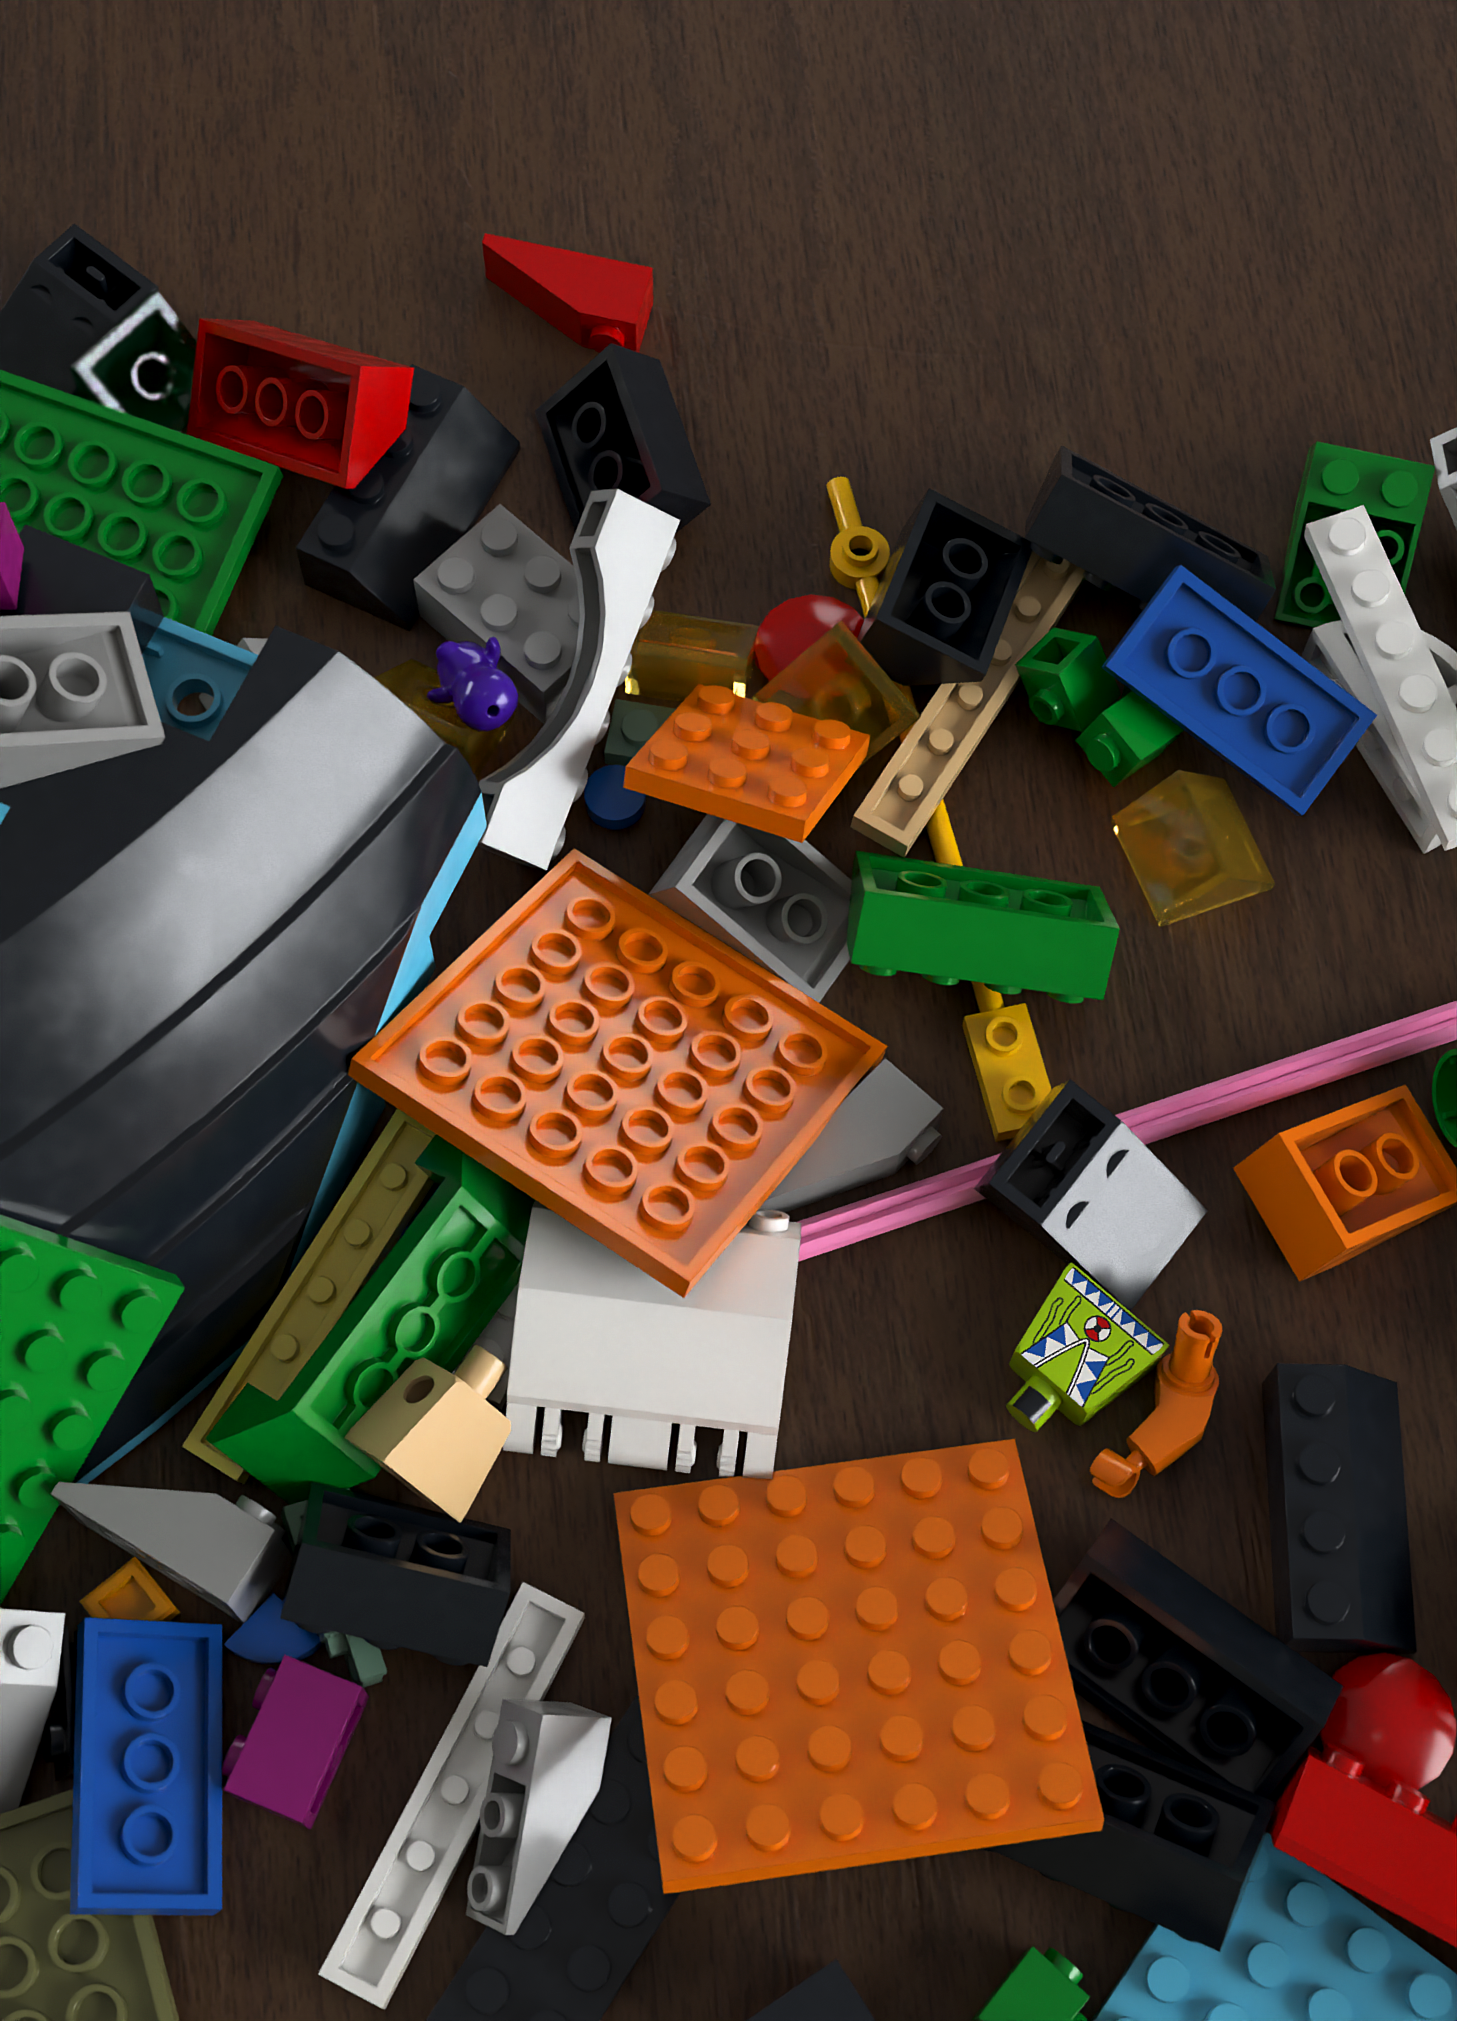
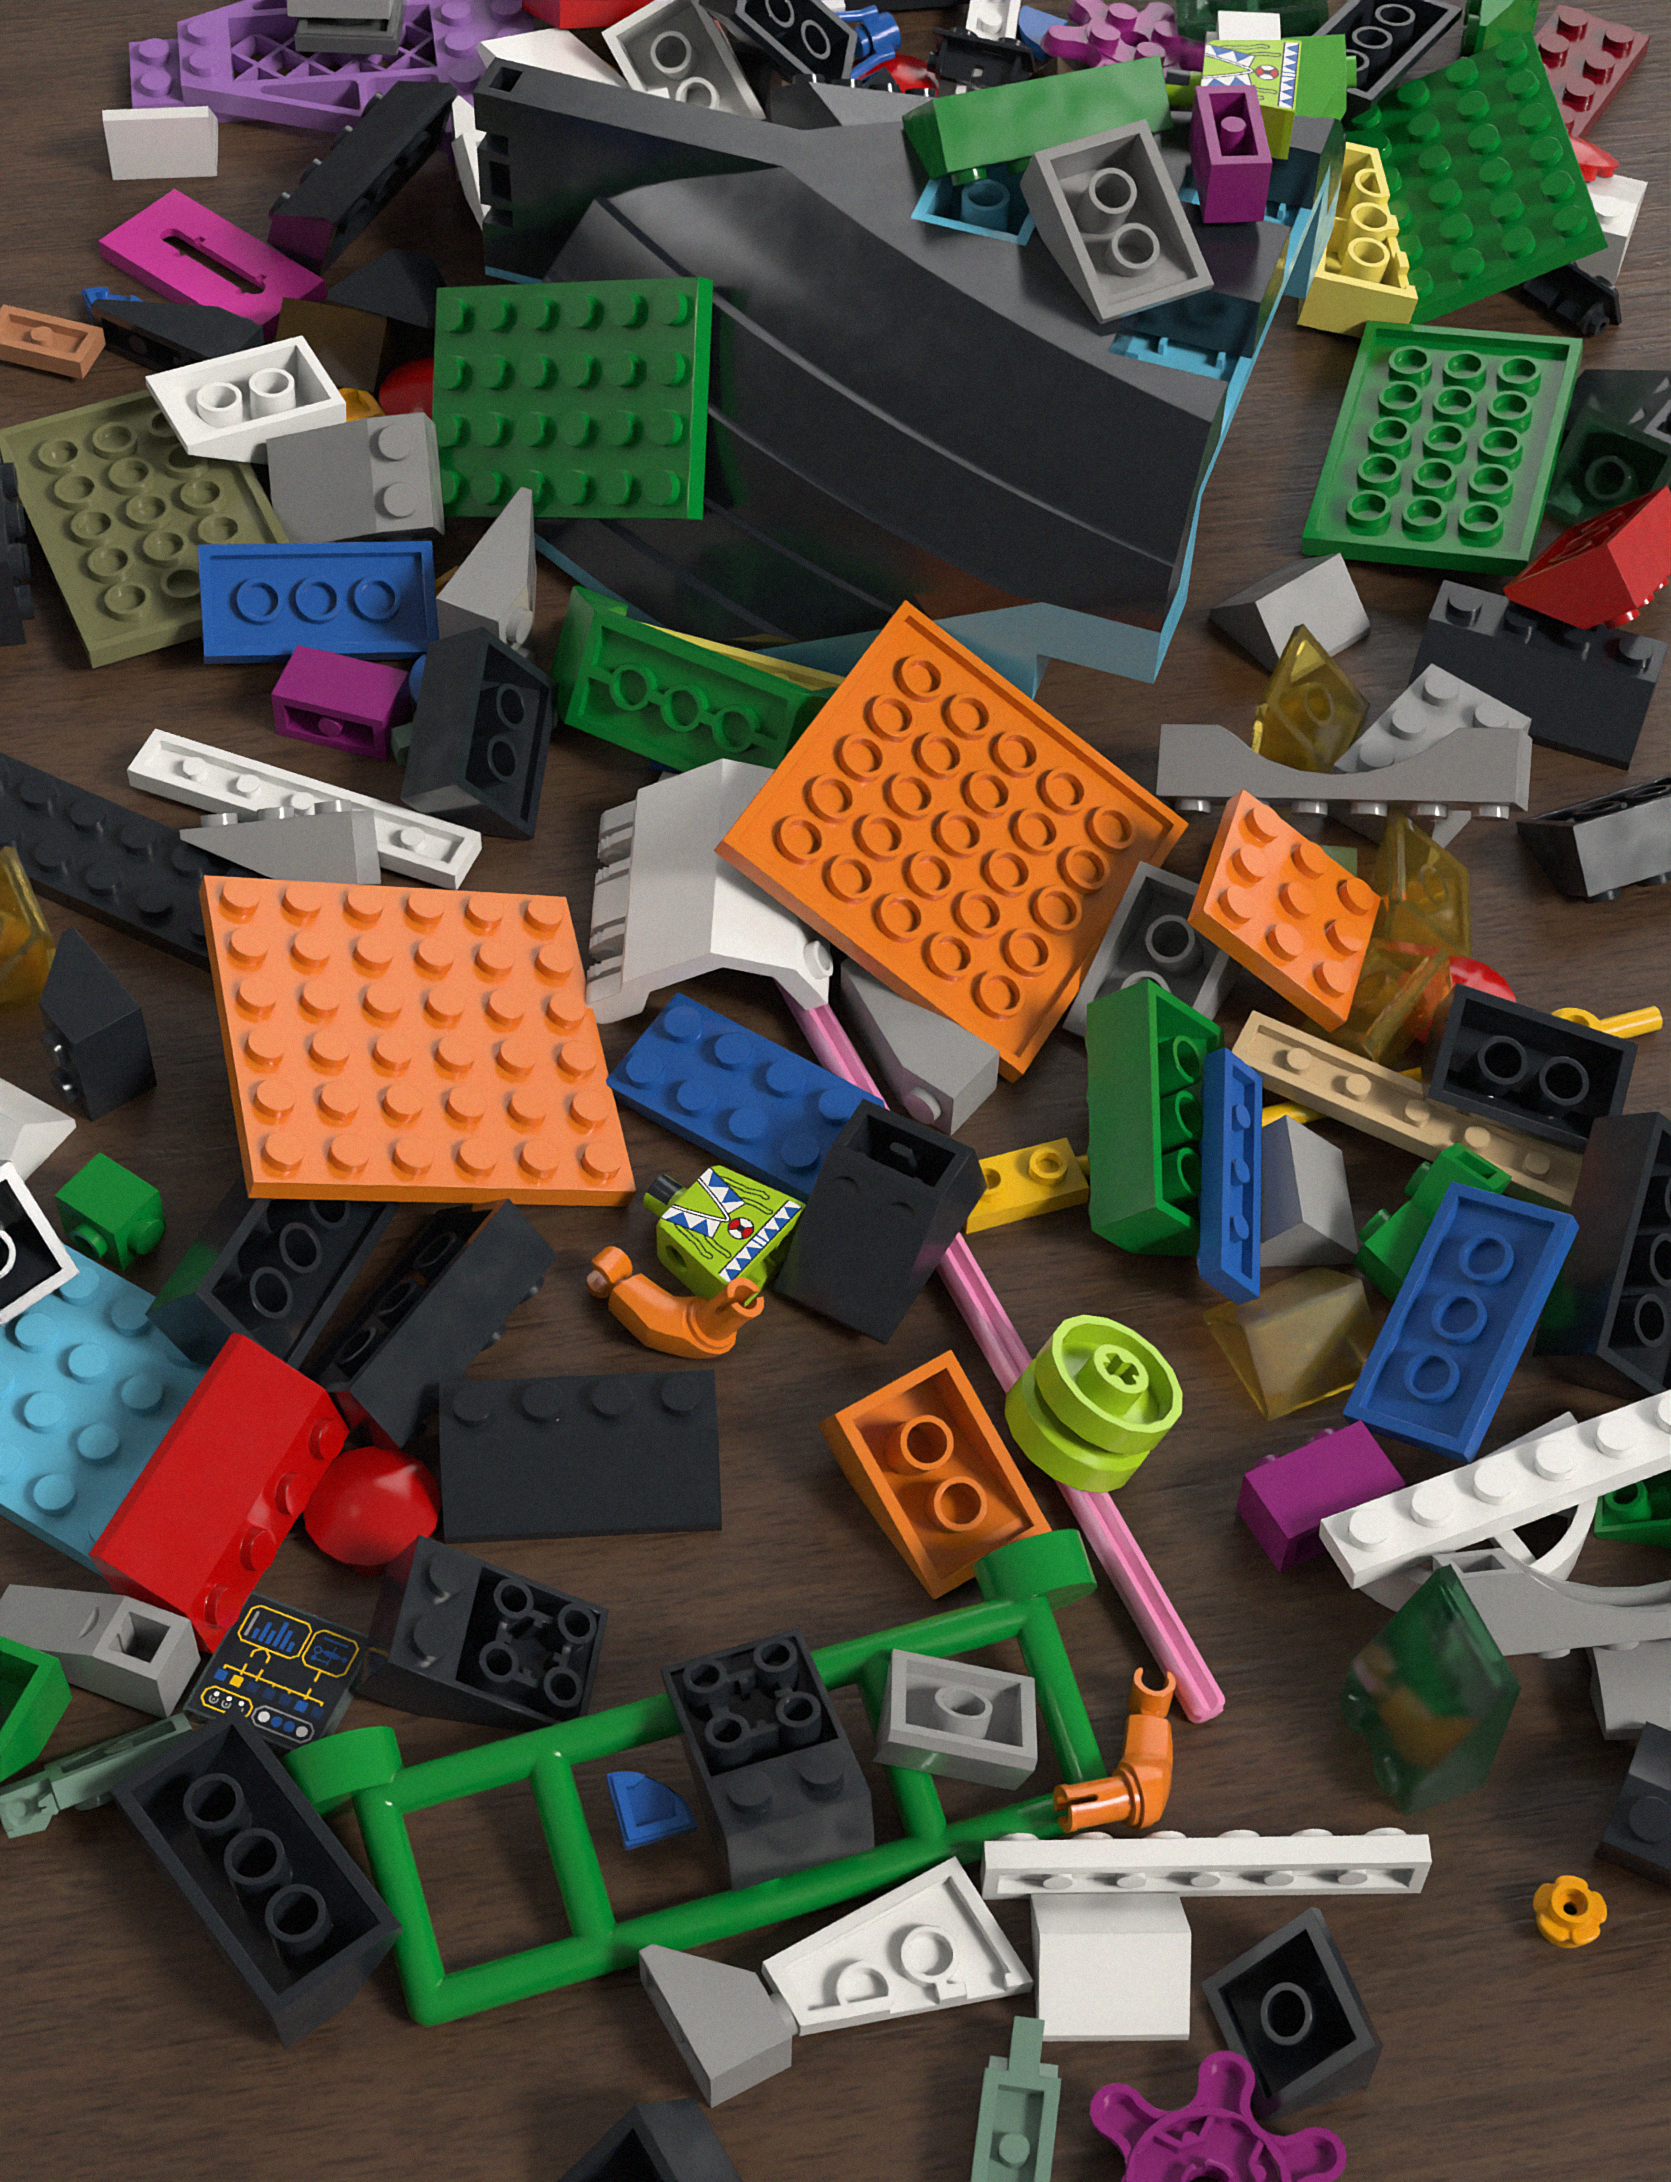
camera: 85 degrees right, 15 degrees down
(438, 1430) = (600, 745): tan torso -> none
(471, 680) = (1328, 716): dark purple animal -> none
(907, 1321) = (736, 1095): none -> blue plate
(1045, 828) = (1303, 1199): none -> light grey slope
(1071, 871) = (1230, 1177): none -> blue plate
(1312, 1020) = (1093, 1404): none -> lime wheel
(1375, 850) = (1291, 1493): none -> magenta brick

